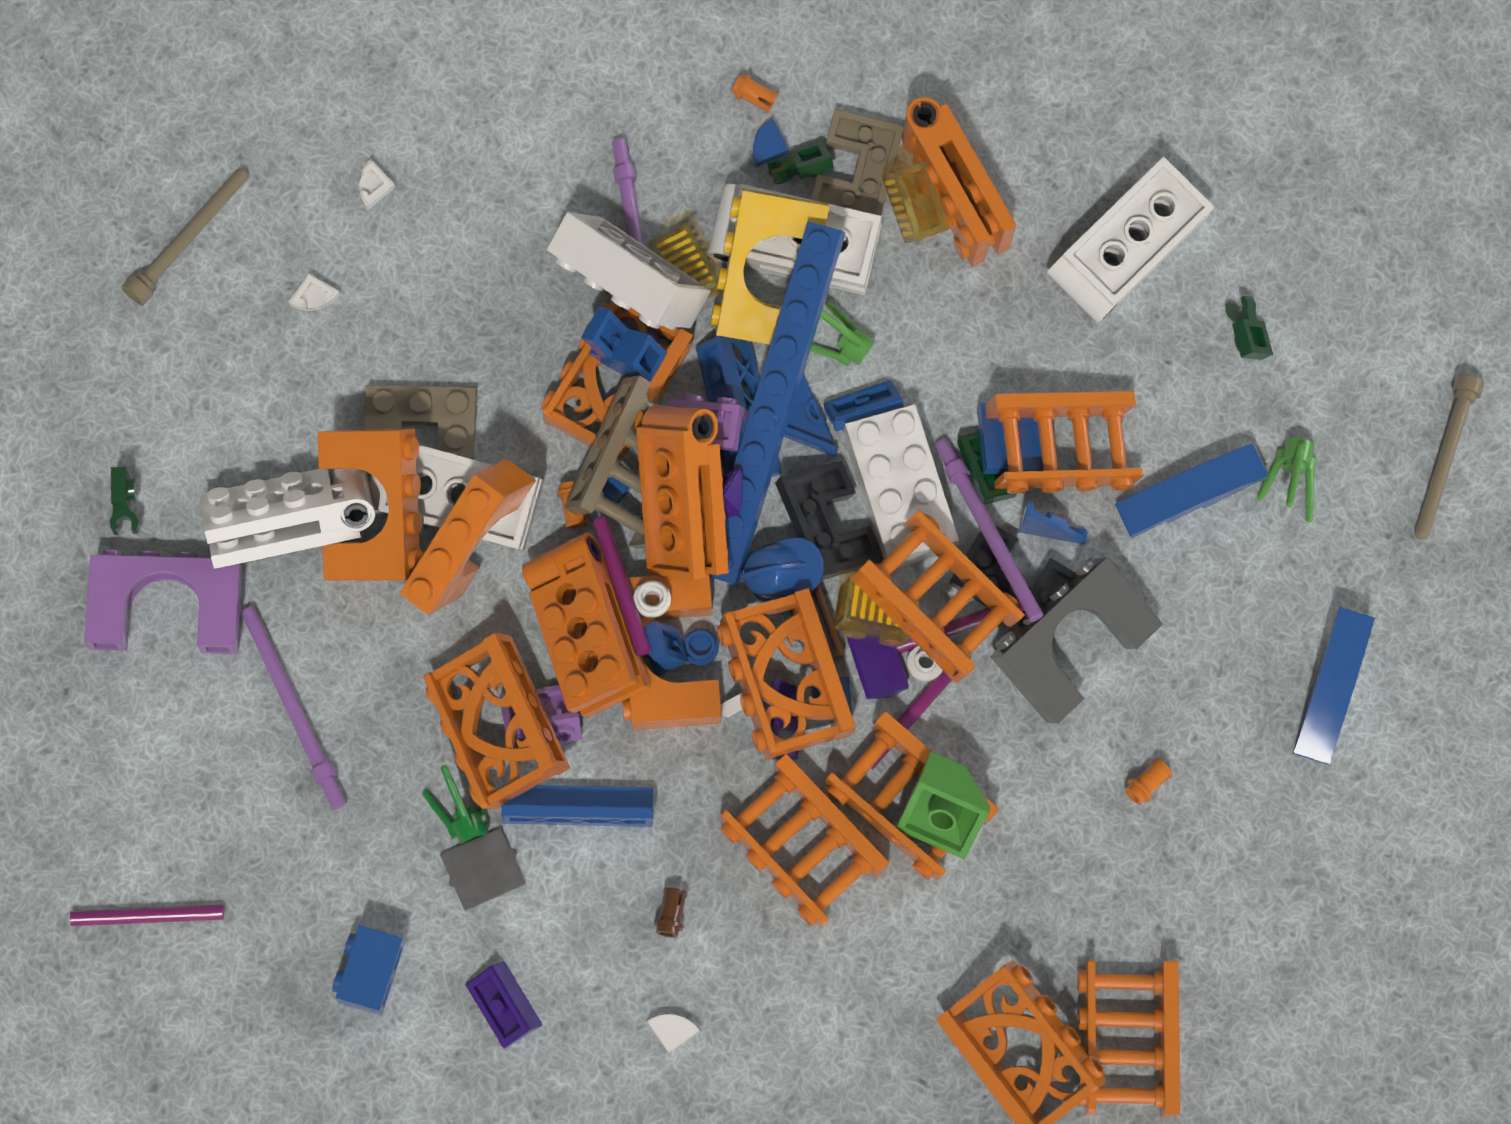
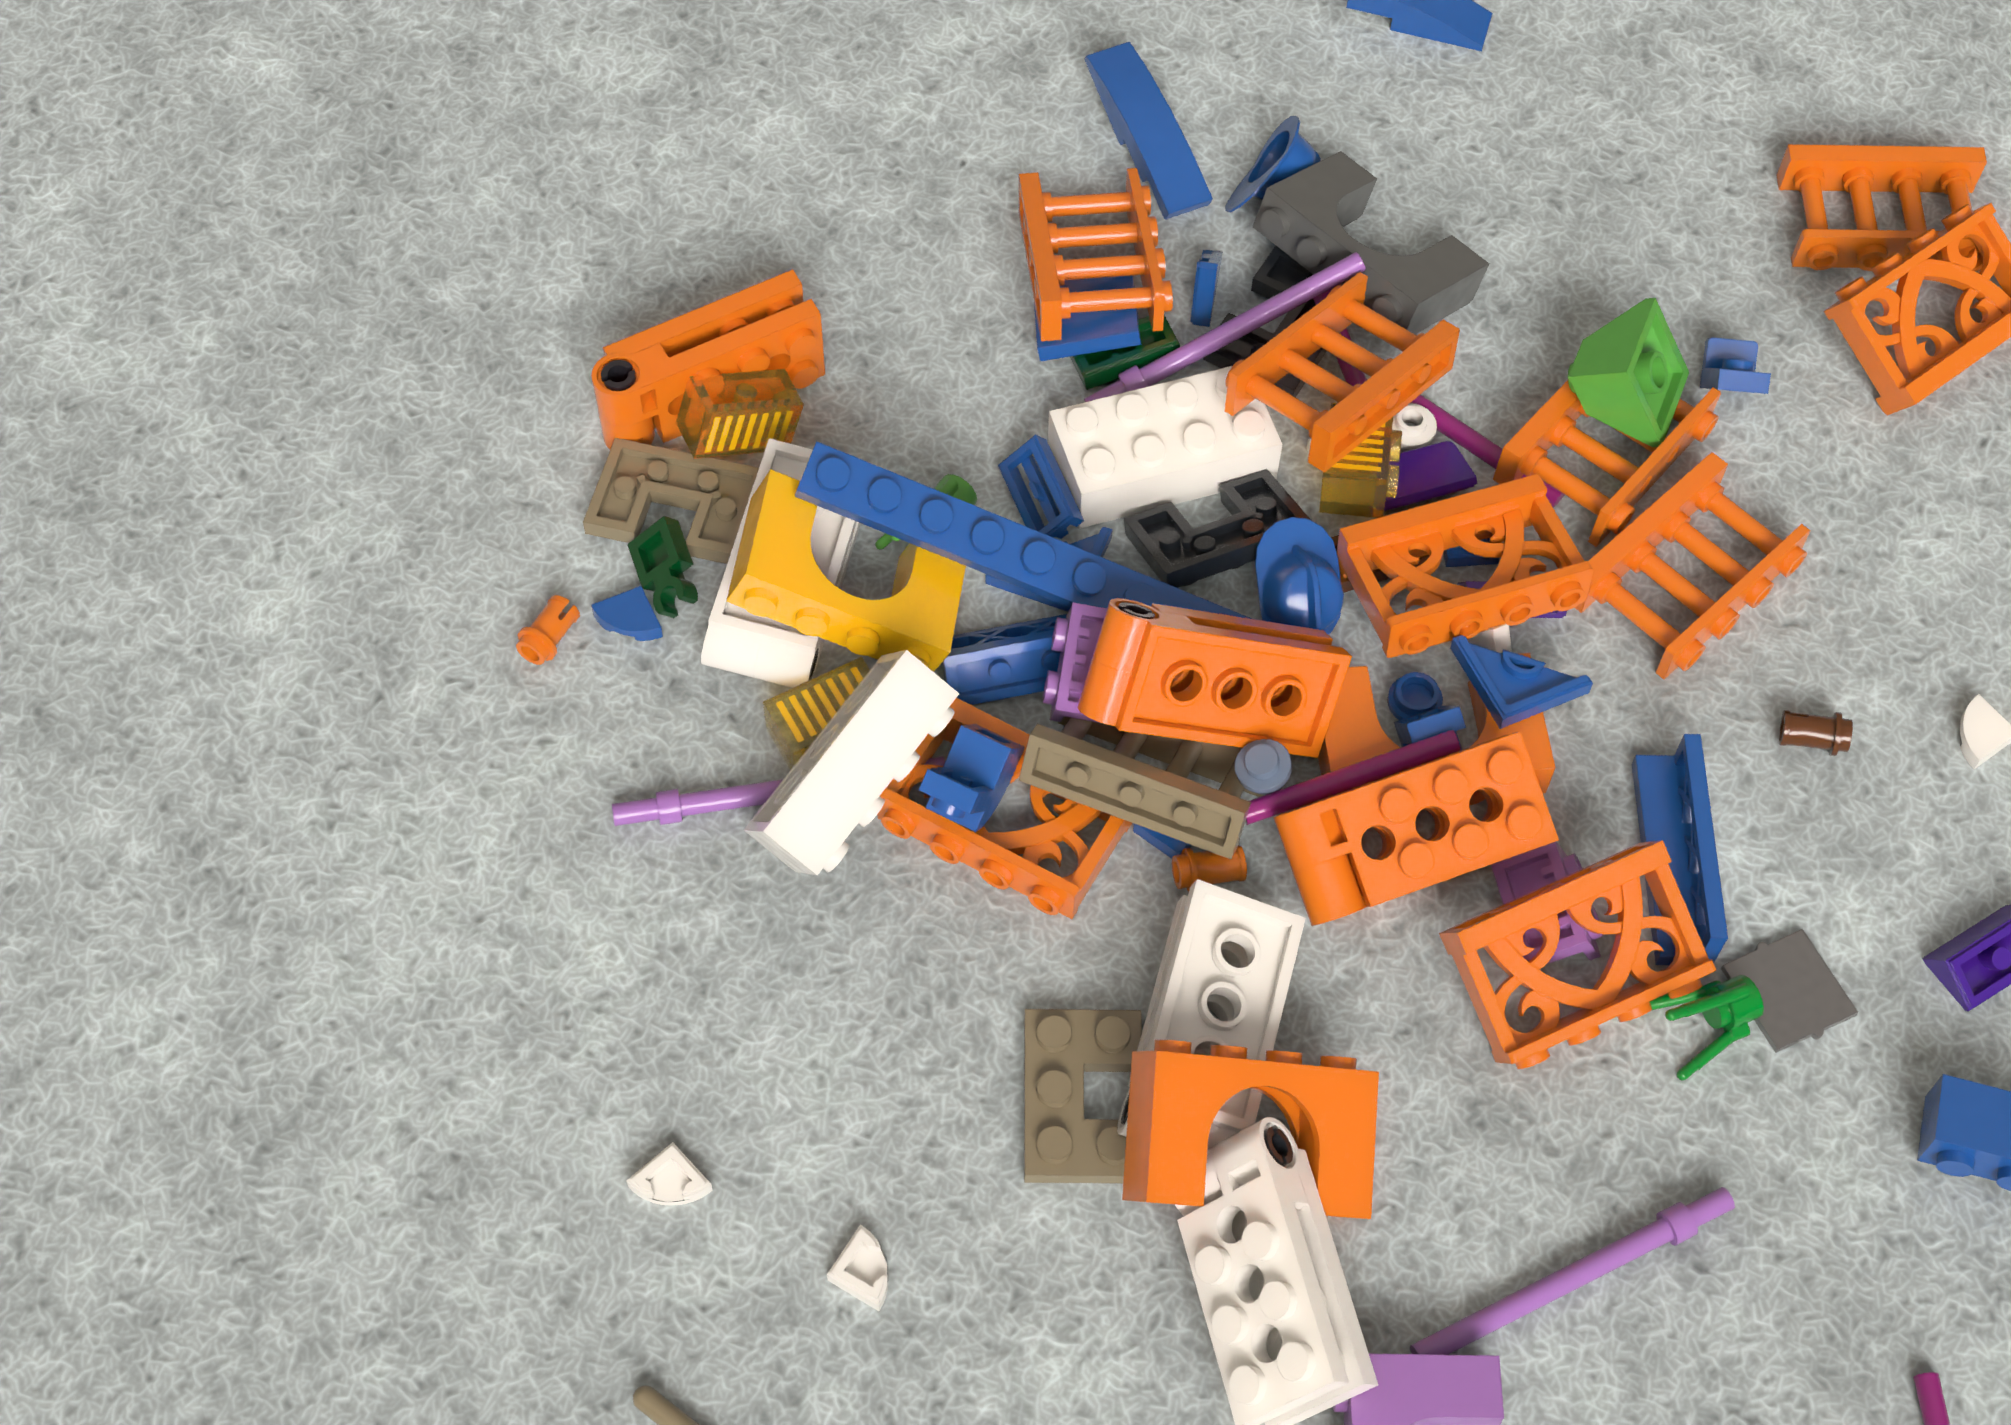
camera: 85 degrees left, 15 degrees down
(445, 566) = (1279, 915): orange arch -> none
(627, 529) = (1263, 766): none -> sand blue plate
(656, 588) = (1370, 721): white plate -> none
(693, 699) = (1514, 684): none -> blue tile
(970, 895) = (1732, 366): none -> bracket
(1102, 287) = (799, 177): white hinge -> none
(1142, 787) = (1545, 187): orange pin -> none
(1152, 581) = (1280, 158): none -> blue piece
(1250, 334) = (933, 67): dark green plate -> none
(1297, 458) = (1097, 22): bright green plant -> none

